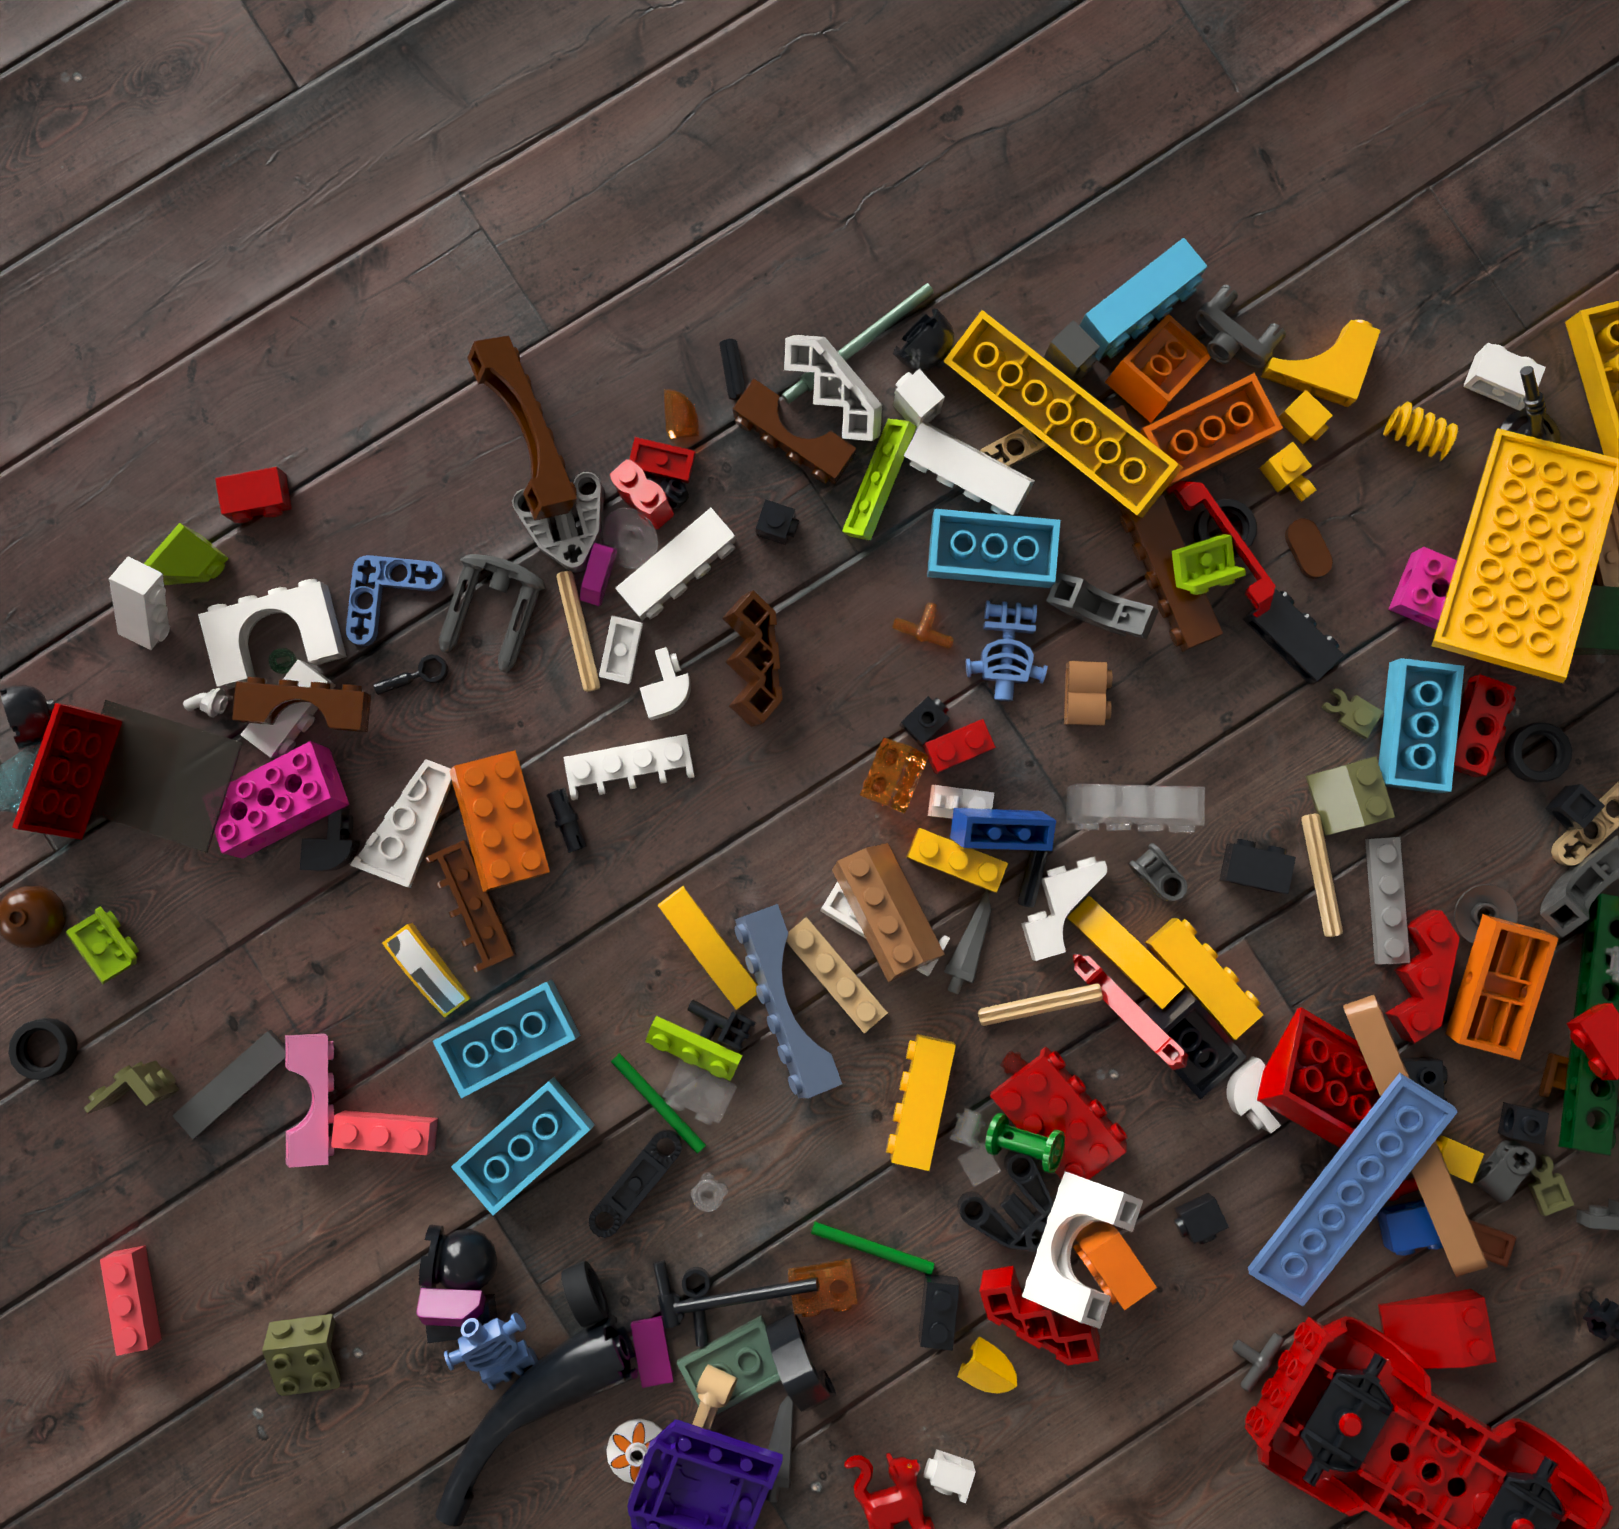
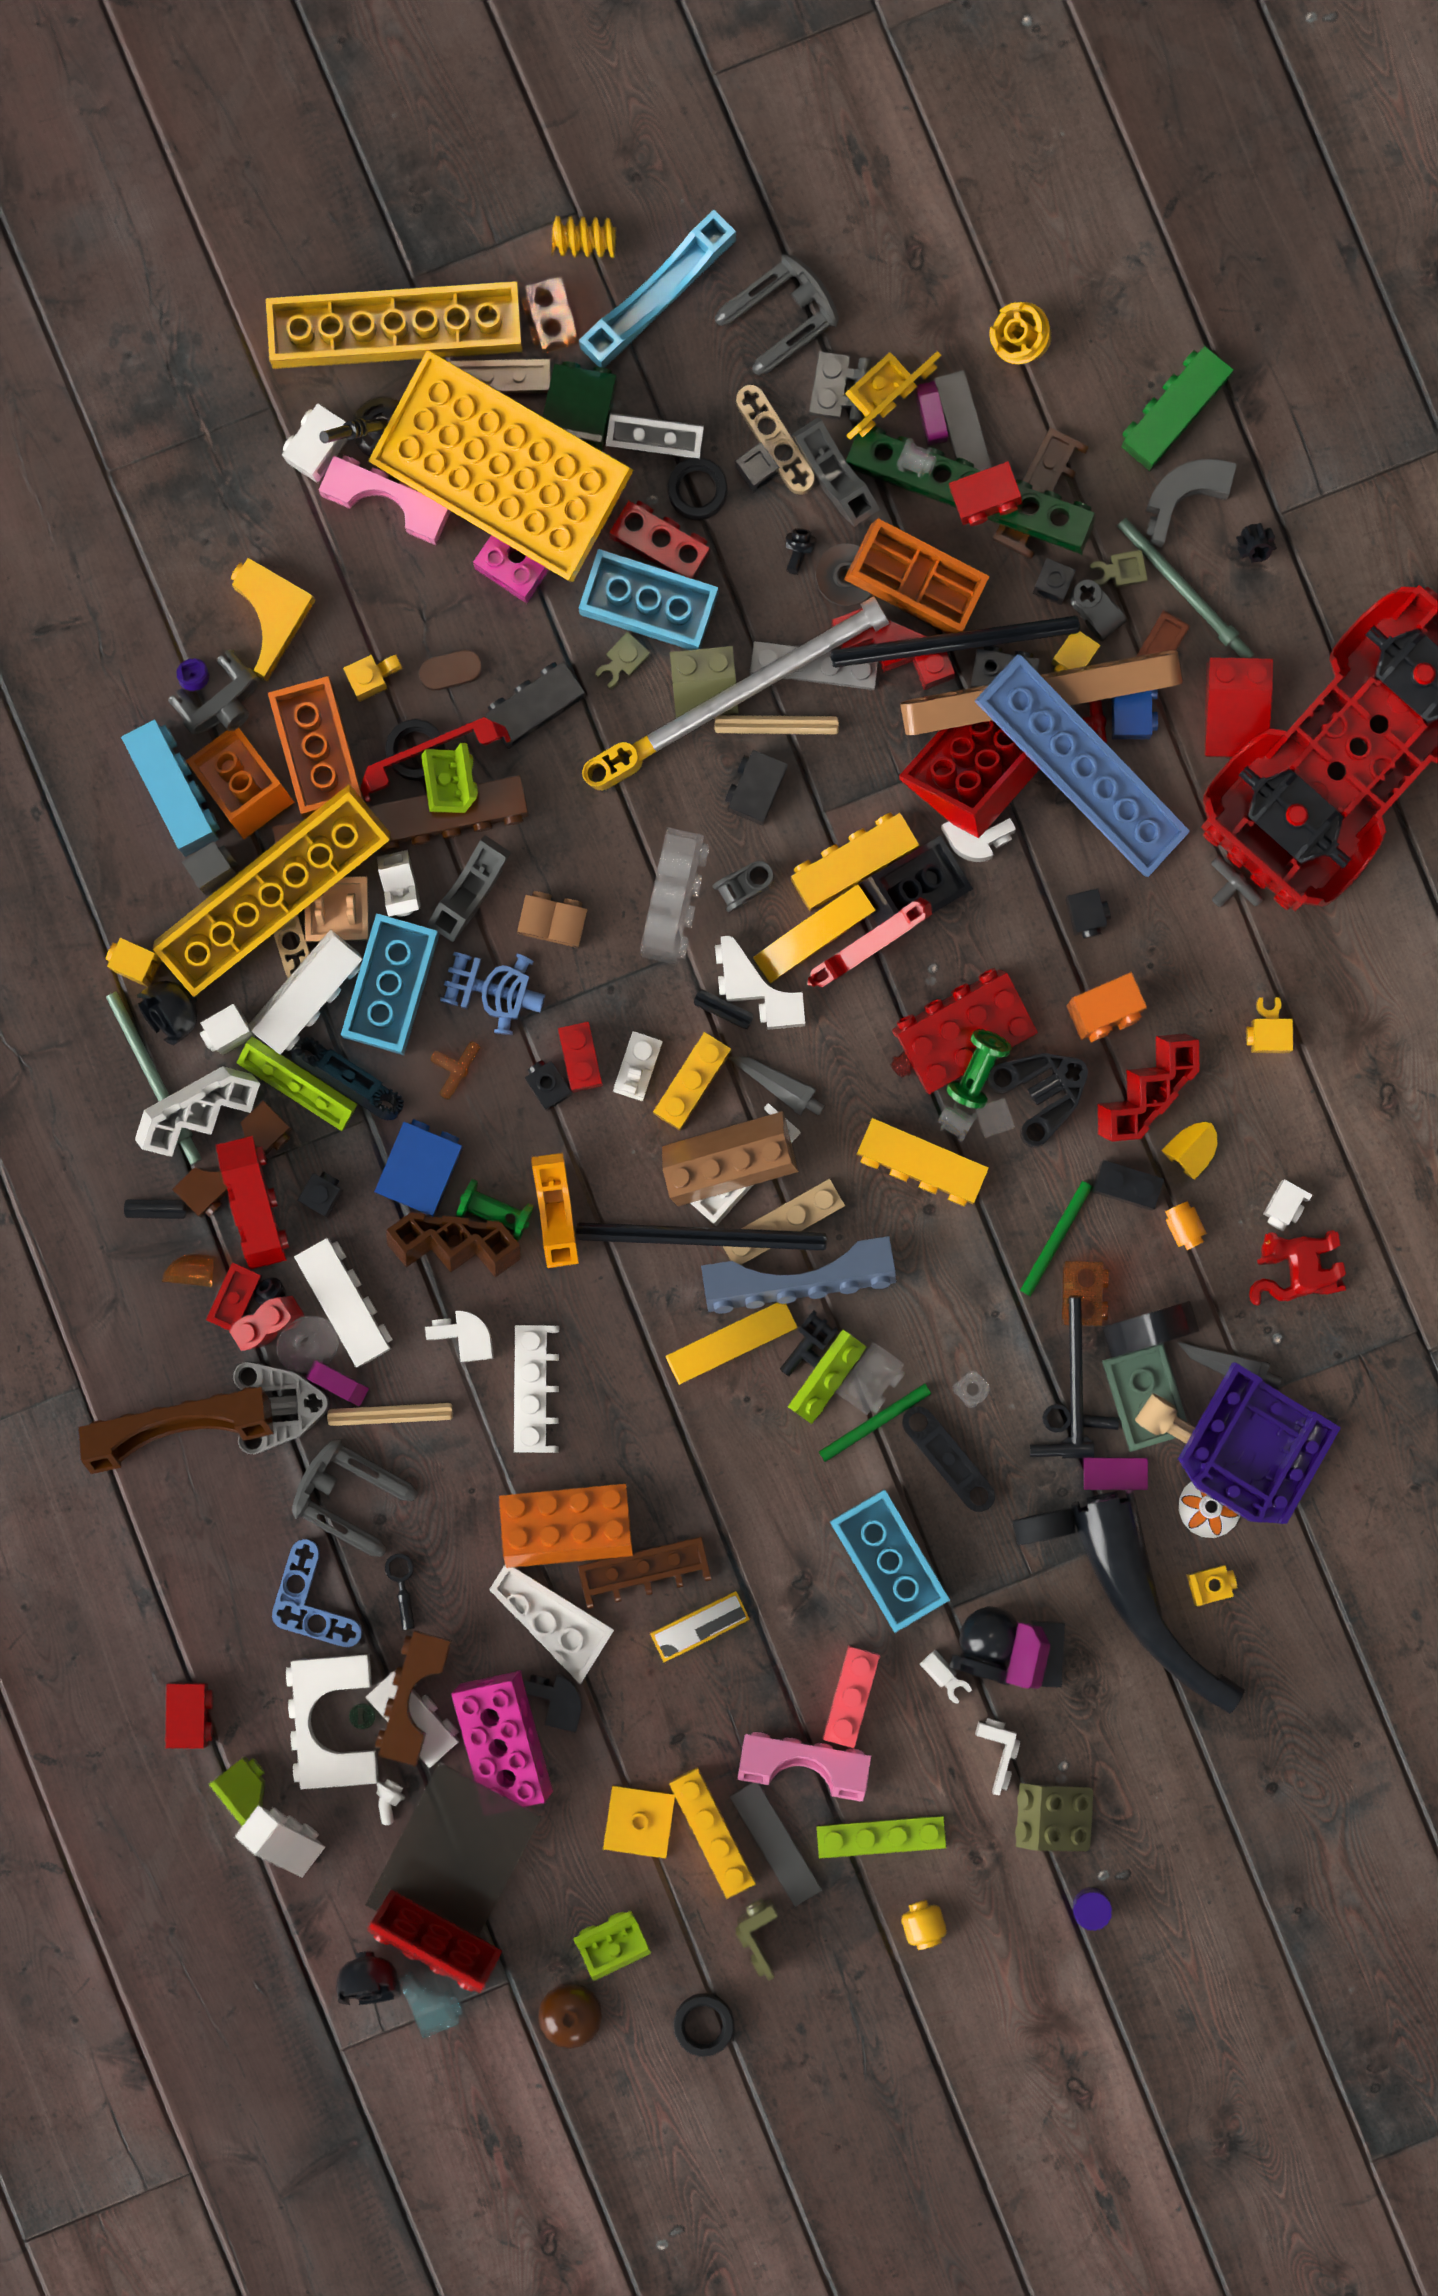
camera: 75 degrees left, 0 degrees up
(130, 1300) = (967, 1977): coral brick -> none
(175, 1247) = (924, 1925): none -> yellow head
(219, 1412) = (1092, 1909): none -> dark purple piece
(228, 1021) = (712, 1832): none -> yellow brick
(229, 947) = (639, 1821): none -> yellow plate
(256, 1187) = (881, 1836): none -> lime plate
(376, 1281) = (995, 1731): none -> white bracket
(423, 1218) = (943, 1675): none -> white bar
(492, 1349) = (1079, 1625): medium blue piece -> none
(506, 1038) = (781, 1557): medium azure brick -> none
(559, 1459) = (1200, 1581): none -> yellow brick
(566, 820) = (577, 1460): black pin -> none
(620, 649) = (418, 1374): white plate -> none
(755, 455) = (252, 1202): none -> red brick
(793, 691) = (493, 1210): none -> green hose
(804, 751) = (555, 1210): none -> light orange arch
(807, 900) = (701, 1236): none -> black axle
(820, 612) = (419, 1167): none -> blue brick
(893, 526) = (347, 1078): none -> black plate
(894, 775) = (596, 1126): clear orange brick -> none
(910, 1377) = (1185, 1225): none -> light orange brick
(965, 297) = (133, 962): none -> yellow brick
(1002, 829) = (670, 1030): blue brick -> none
(1040, 1004) = (849, 1027): tan axle -> none
(1051, 1275) = (1046, 1031): white arch -> none
(1057, 486) = (342, 910): none -> light nougat plate
(1092, 538) = (398, 884): none -> white brick
(1118, 1427) = (1271, 1033): none -> yellow brick
(1253, 303) = (192, 674): none -> dark purple tile
(1305, 418) = (319, 647): yellow brick -> none
(1422, 429) = (354, 536): yellow piece -> none
(1448, 1038) = (955, 641): none -> black axle
(1457, 949) = (870, 616): none -> flat silver piece
(1473, 413) = (349, 483): none -> bright pink arch
(1505, 1306) = (1227, 634): none -> sand green bar
(1506, 864) = (800, 542): none -> black plate
(1585, 701) = (654, 435): none -> white brick

